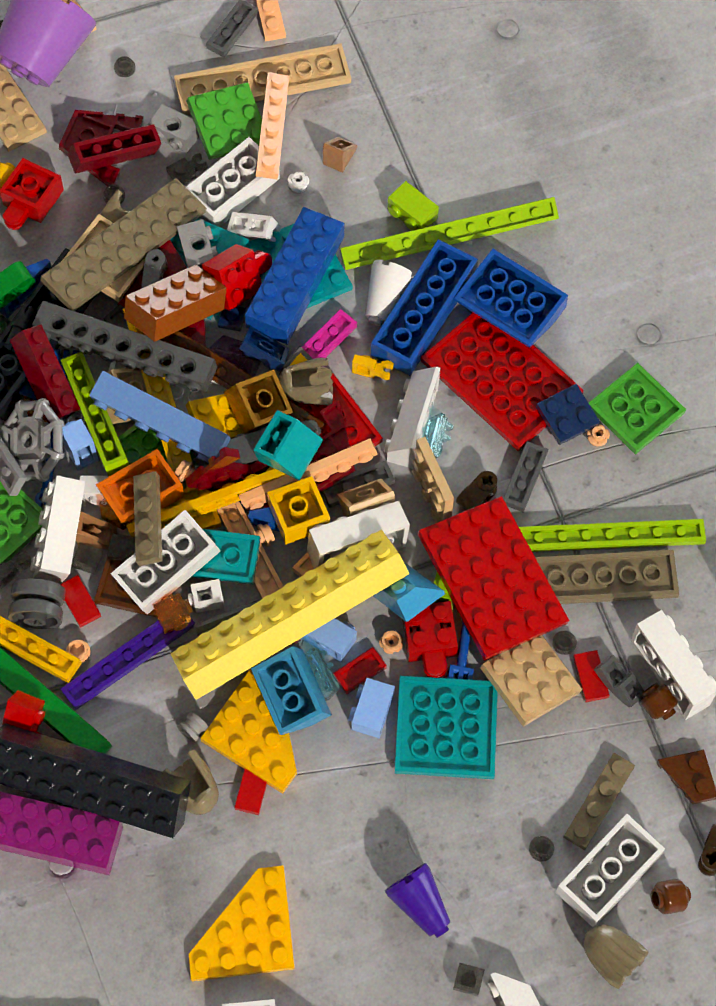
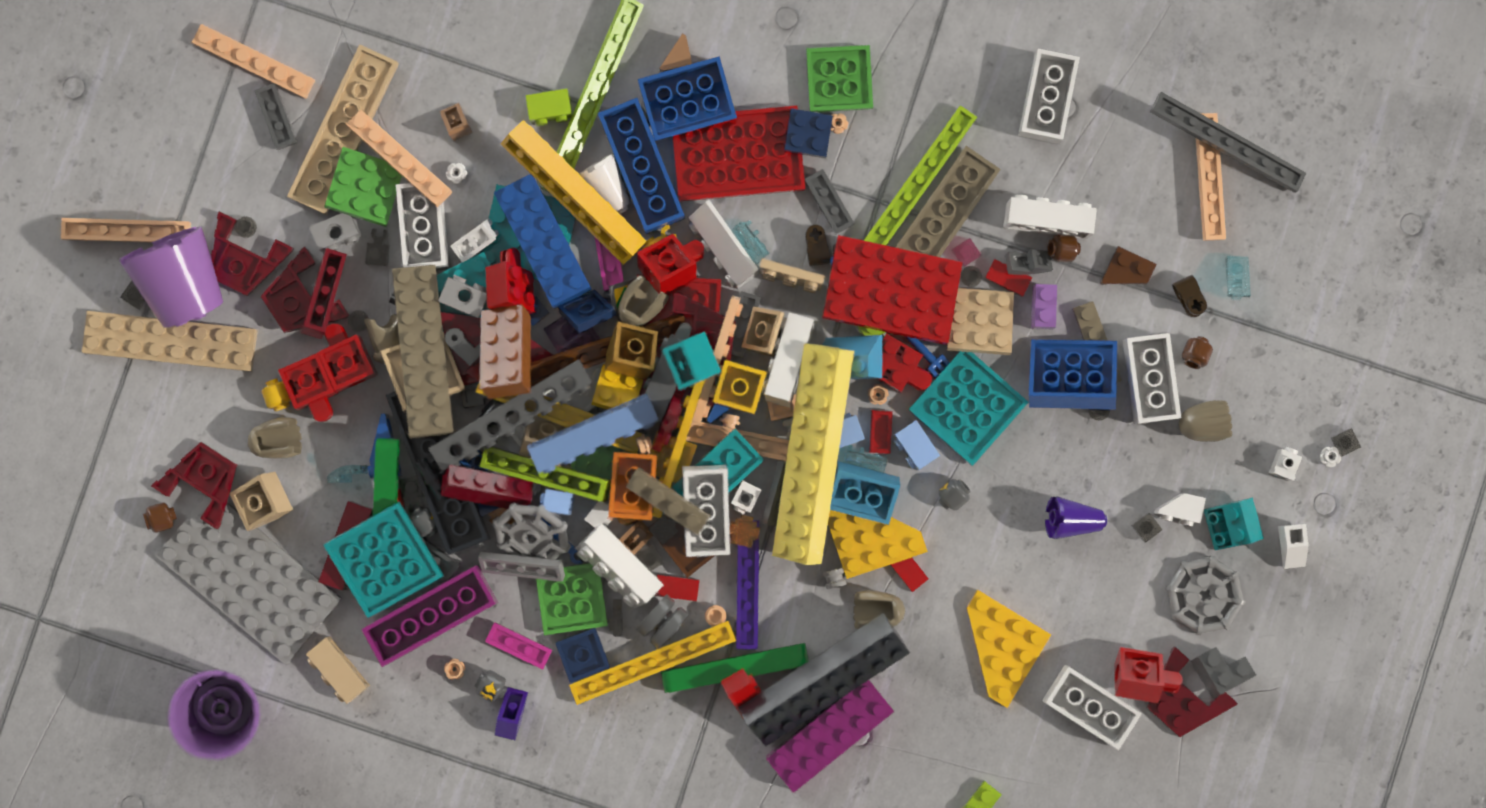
camera: 50 degrees left, 20 degrees up
(72, 204) = (347, 358): none -> red brick
(88, 85) = (238, 266): none -> dark red wing
(355, 266) = (573, 192): none -> yellow brick
(355, 774) = (954, 494): none -> dark grey head
(360, 383) = (670, 263): none -> red brick
(546, 268) = (678, 56): none -> medium nougat slope
(552, 795) = (1073, 374): none -> blue slope
(582, 623) = (966, 252): none -> clear pink plate
(592, 723) = (1044, 306): none -> medium lavender brick

